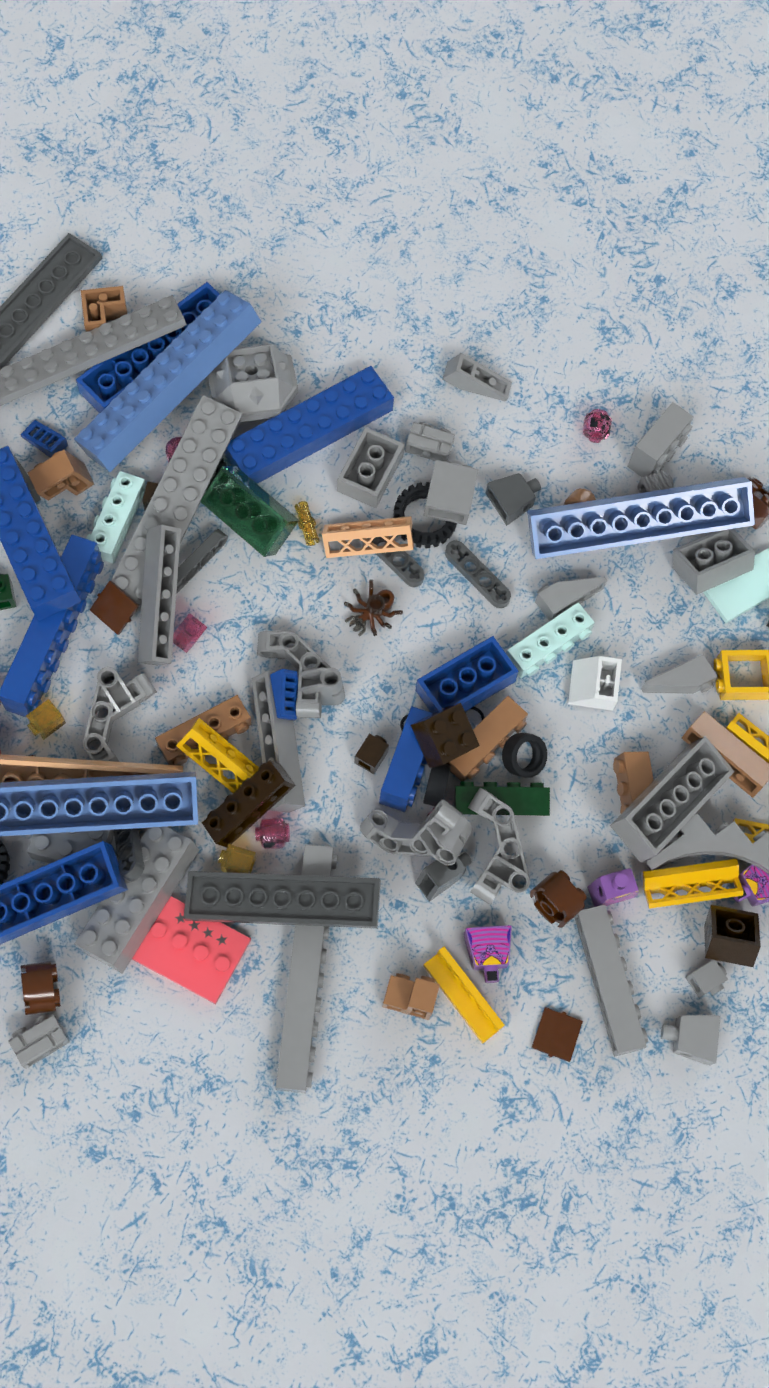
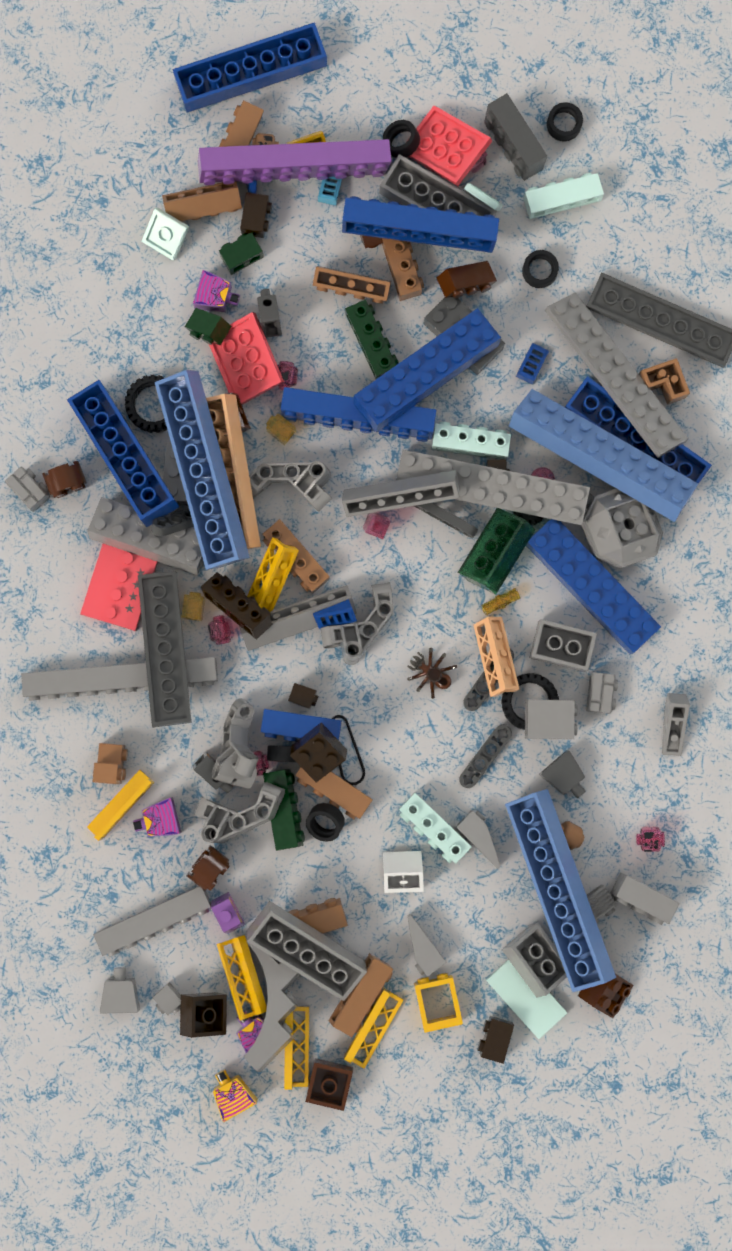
camera: 80 degrees right, 15 degrees up
(60, 473) = (495, 386): medium nougat brick -> none
(114, 607) = (388, 459): reddish brown piece -> none
(468, 677) = (381, 763): blue brick -> none
(557, 1034) = (104, 884): reddish brown piece -> none

